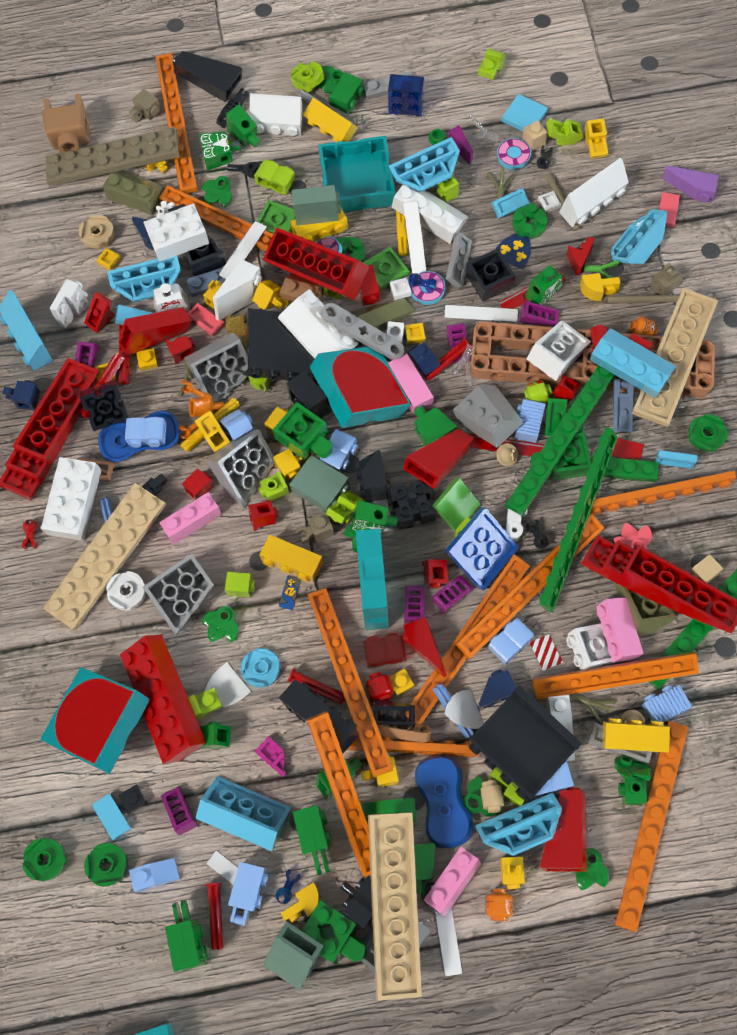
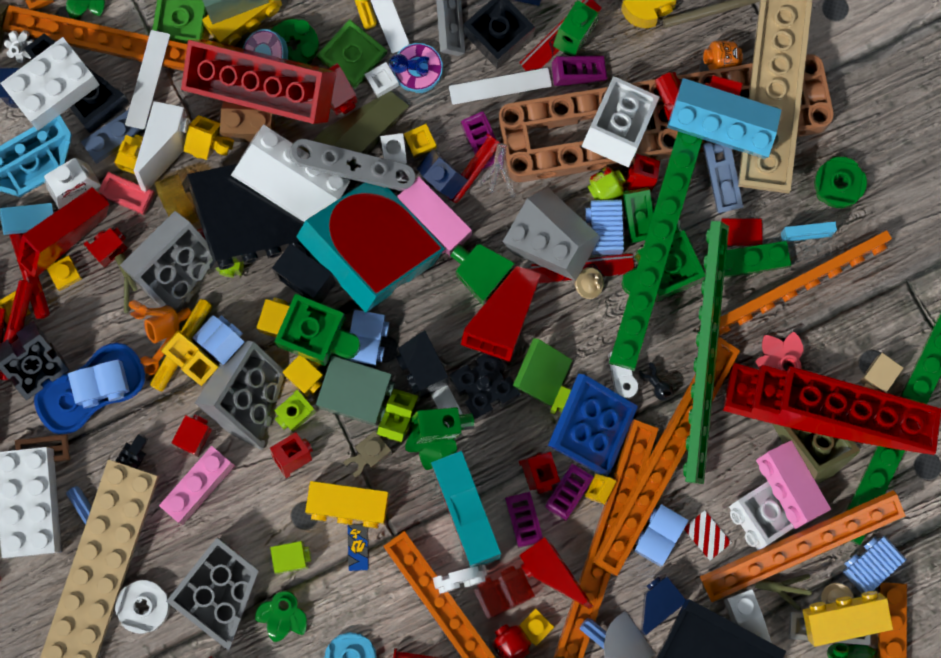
camera: 20 degrees left, 10 degrees up
(354, 626) = (469, 576): none -> white plate
(475, 596) = (600, 488): none -> yellow tile

